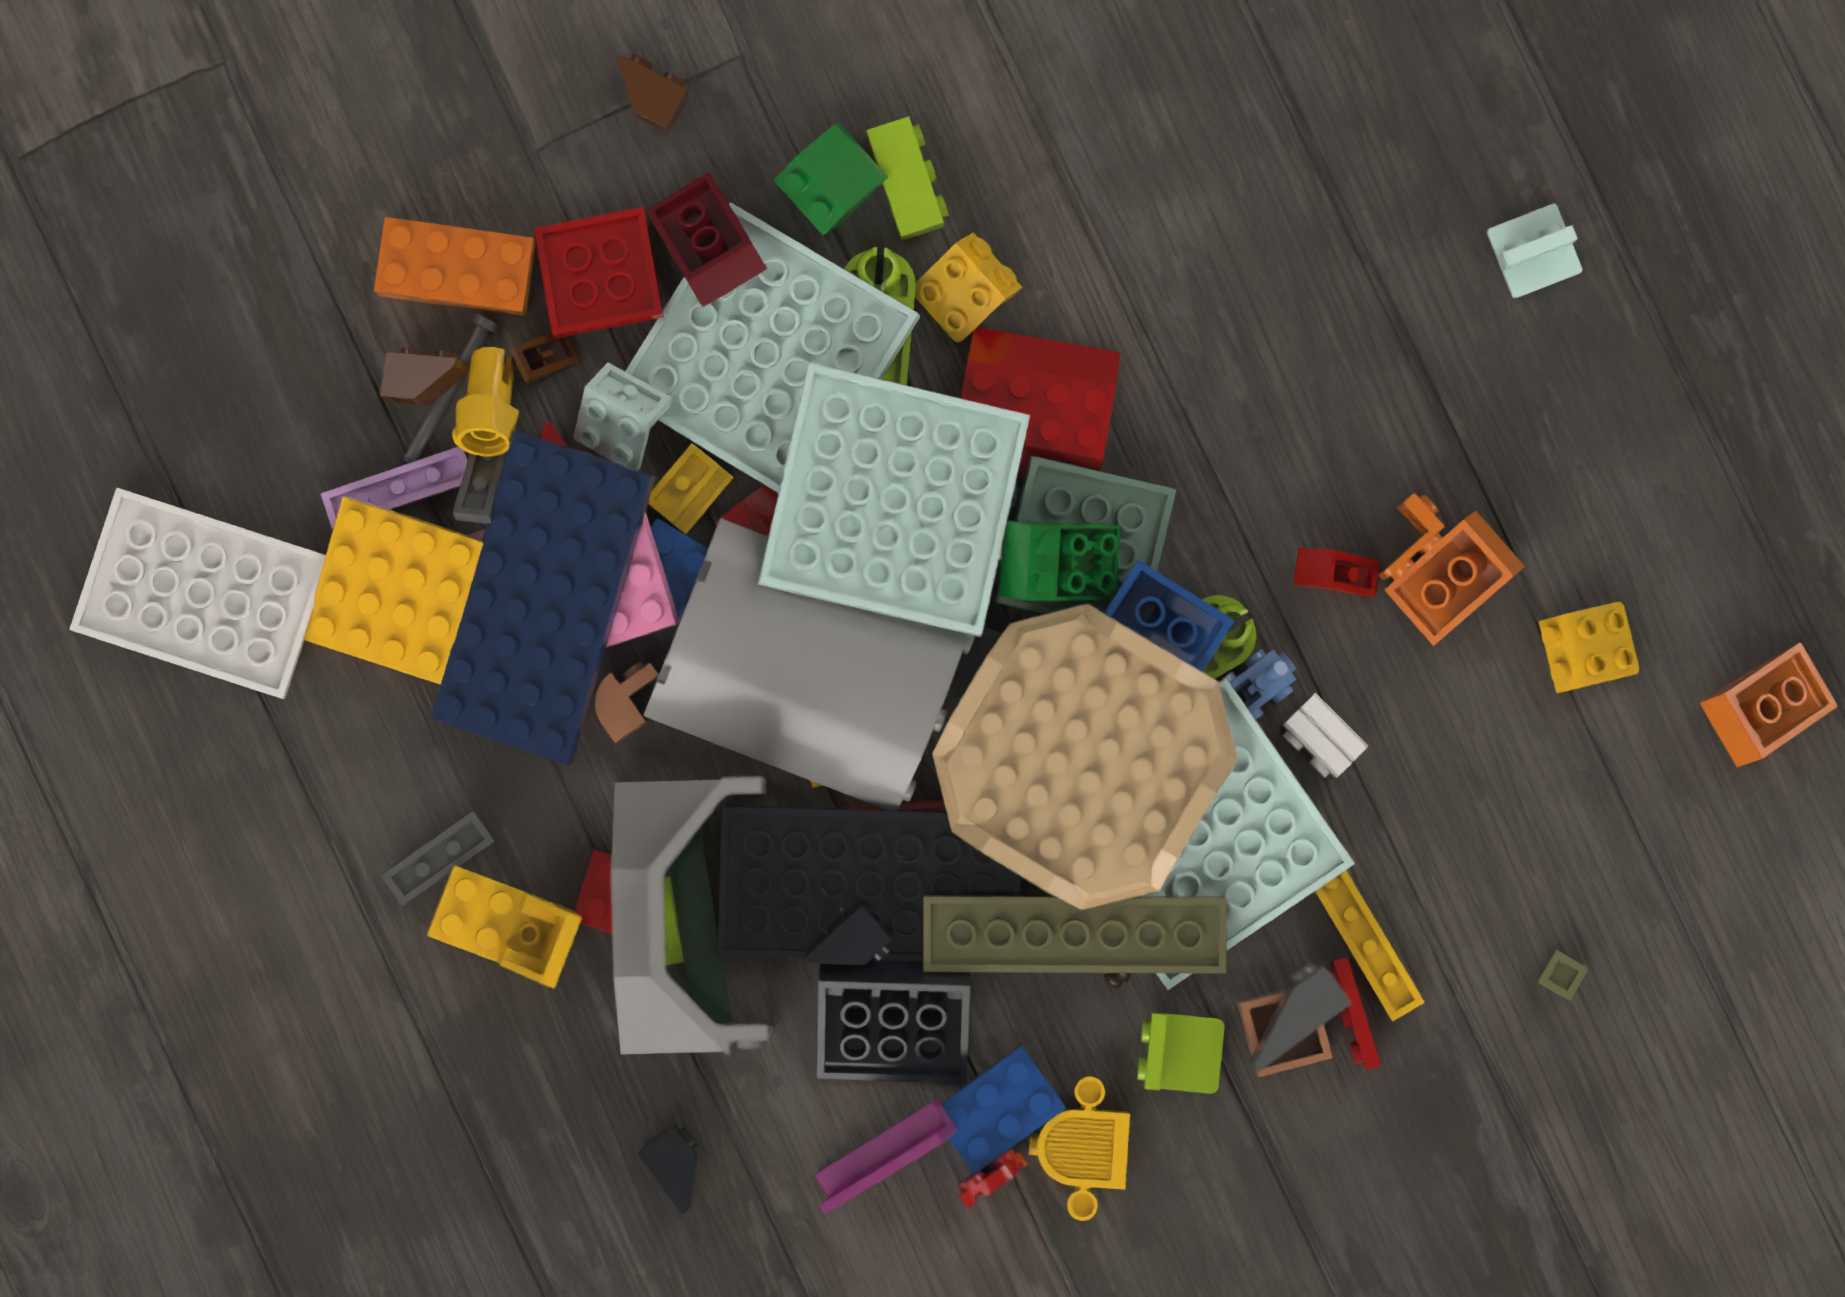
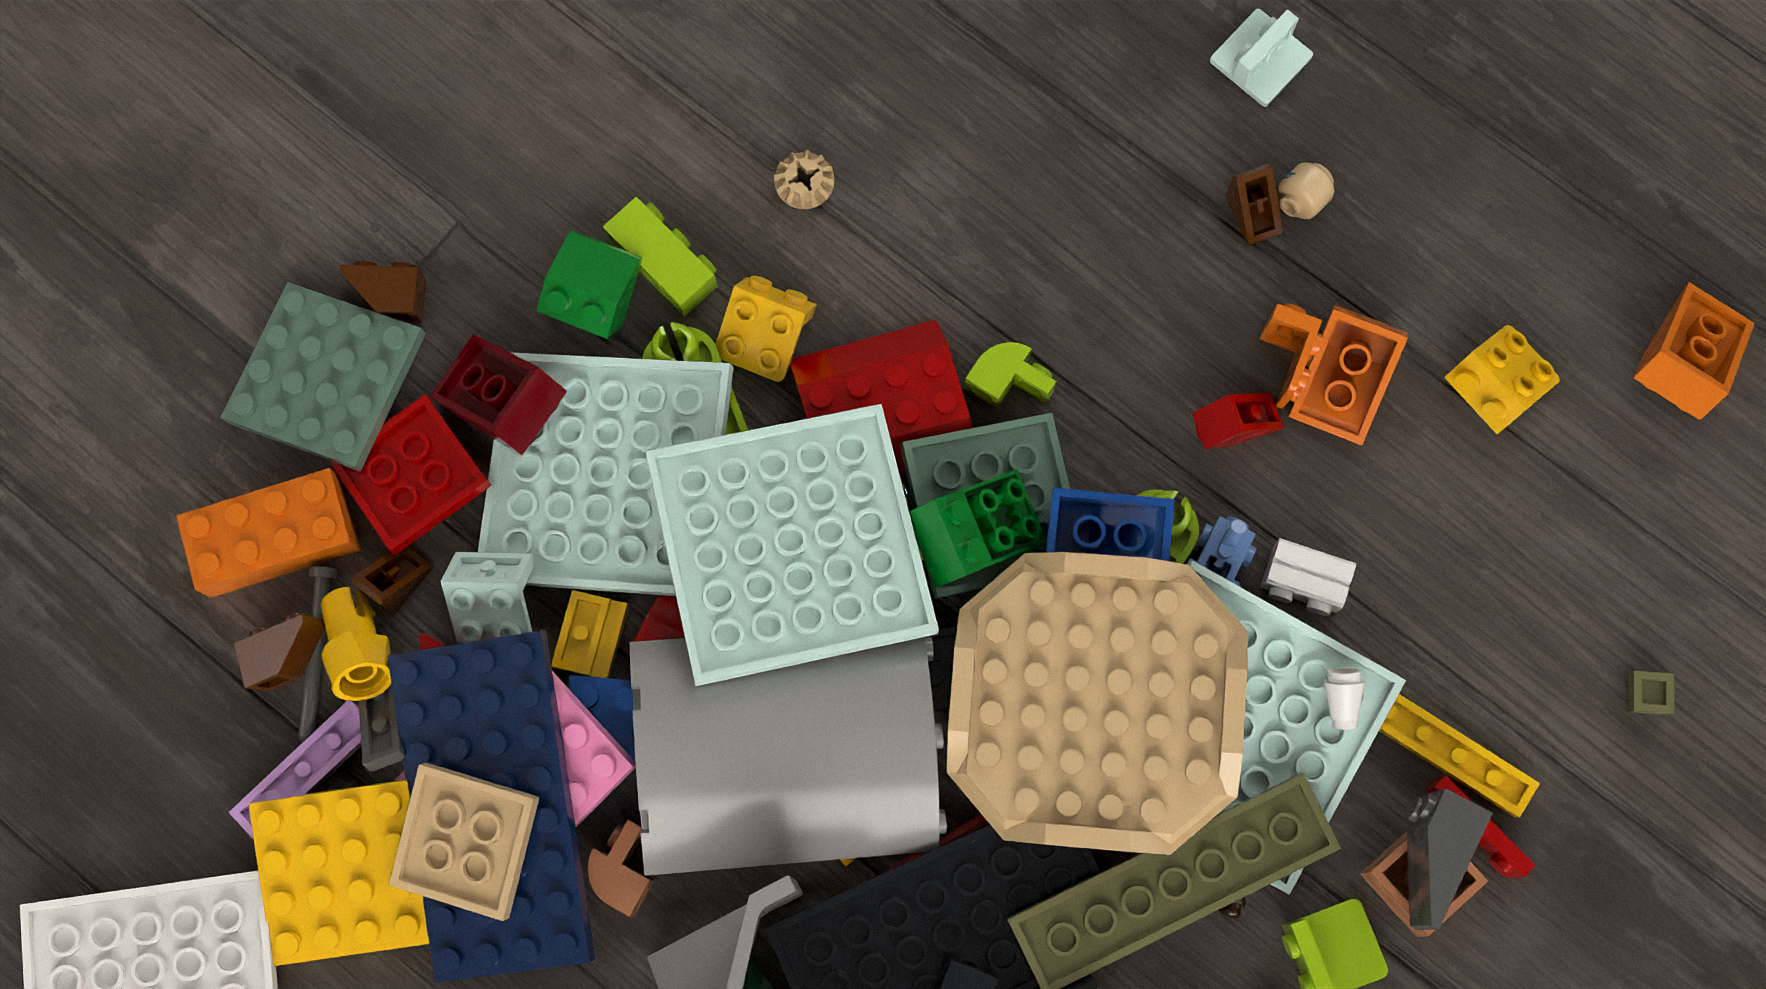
camera: 25 degrees left, 10 degrees down
(510, 618) = (464, 841): none -> tan plate
(562, 145) = (323, 376): none -> sand green plate
(1054, 178) = (797, 194): none -> tan gear
(1155, 426) = (1005, 366): none -> lime brick
(1293, 851) = (1344, 696): none -> white cone
(1454, 388) = (1255, 204): none -> reddish brown slope
(1505, 395) = (1305, 190): none -> tan head

